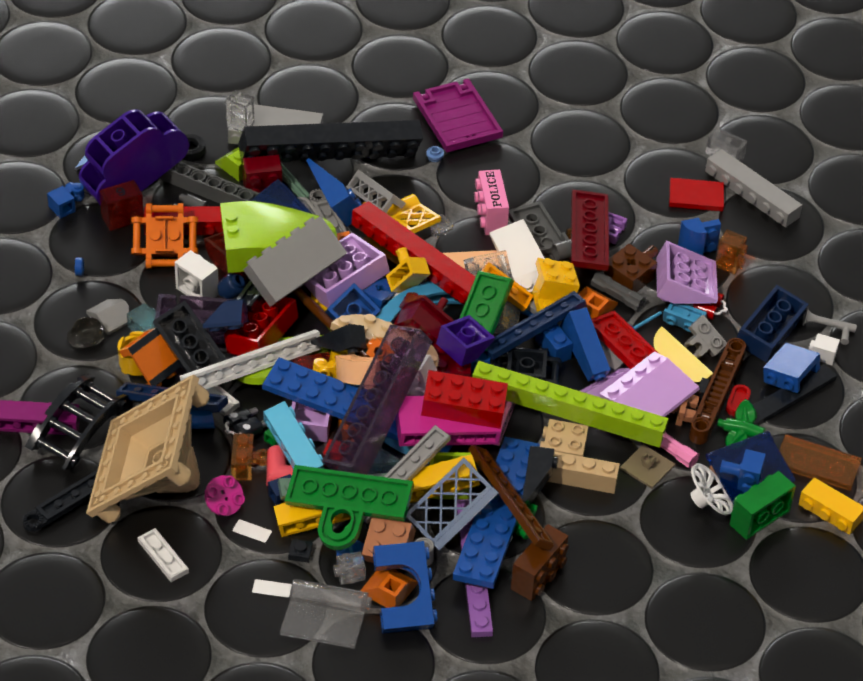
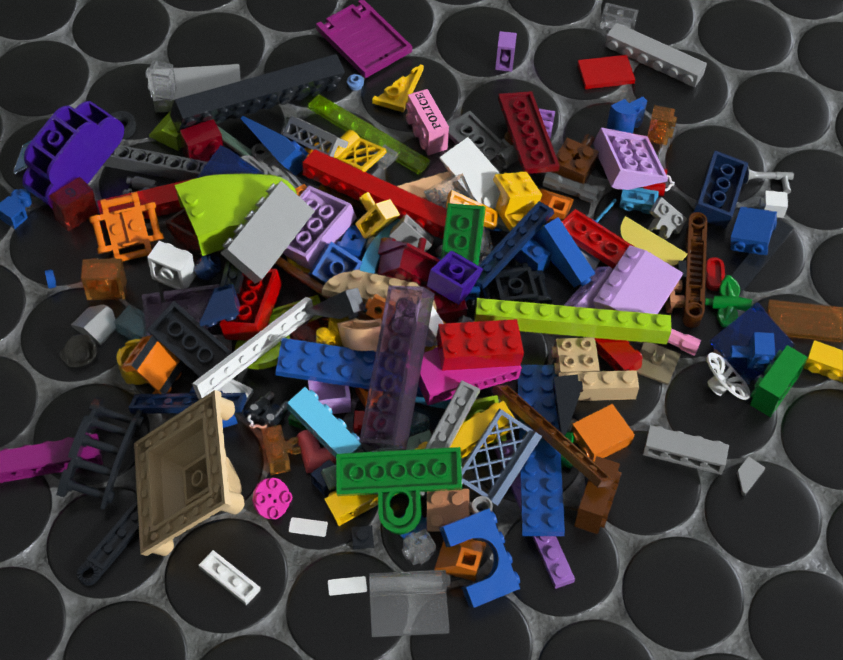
camera: 15 degrees left, 10 degrees up
(128, 275) = (103, 279): none -> clear orange brick
(412, 185) = (366, 131): none -> clear neon green tile
(434, 290) = (409, 231): none -> light grey brick
(469, 171) = (397, 94): none -> yellow wing
(567, 512) = (602, 433): none -> orange brick
(596, 153) = (506, 51): none -> medium lavender brick
(609, 447) = (619, 354): none -> red brick
(645, 546) = (686, 449): none -> light grey brick
(703, 583) = (749, 474): none -> light grey tile

